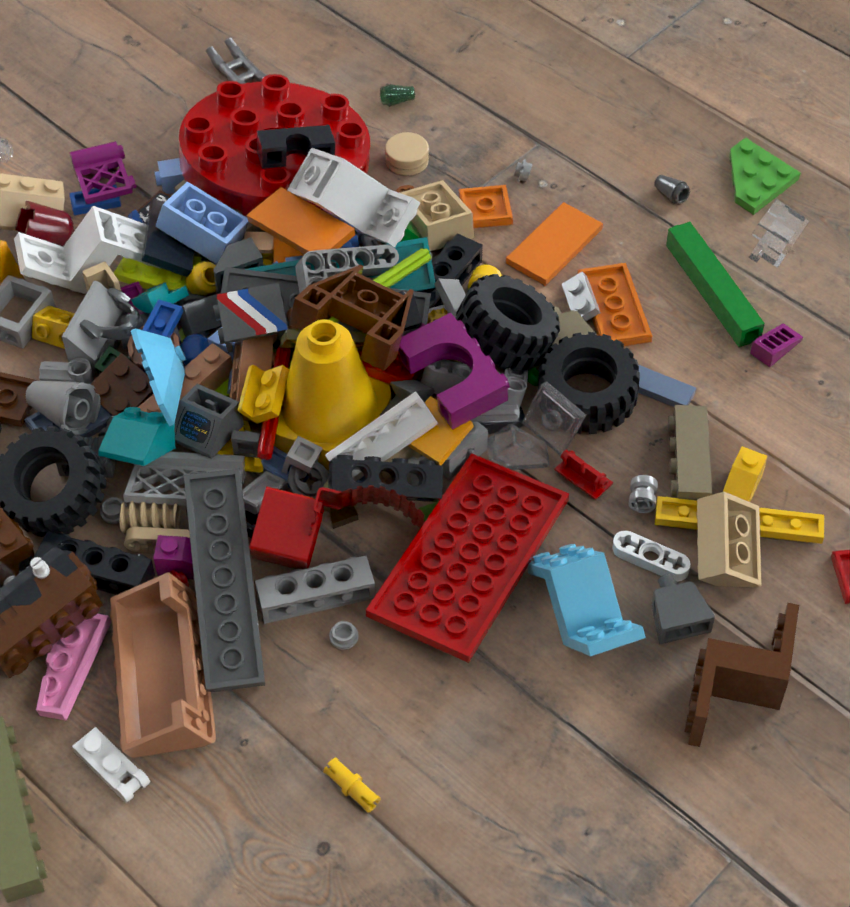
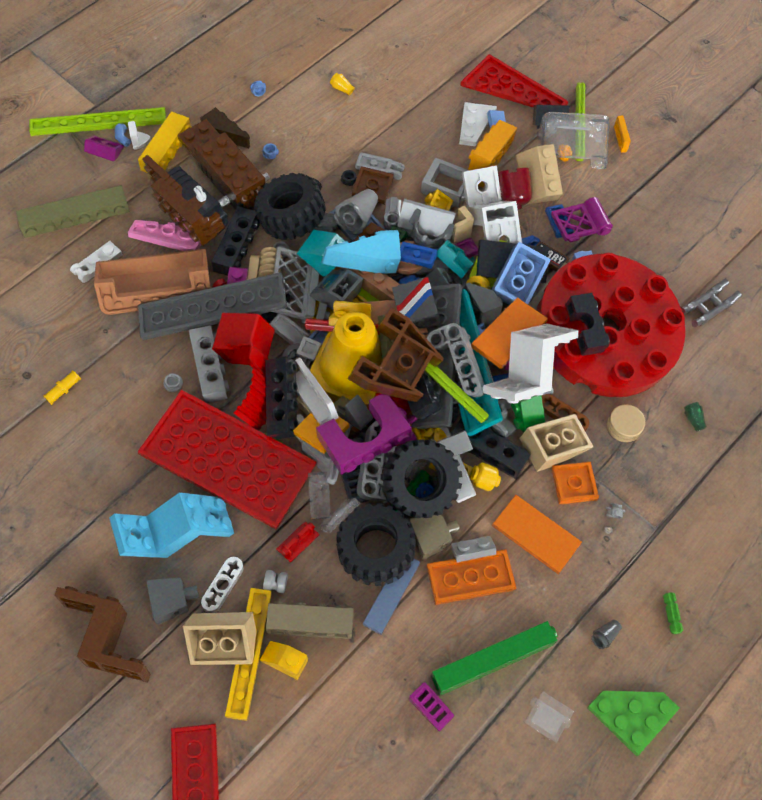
camera: 85 degrees right, 10 degrees up
(640, 135) = (673, 613): none -> bright green axle

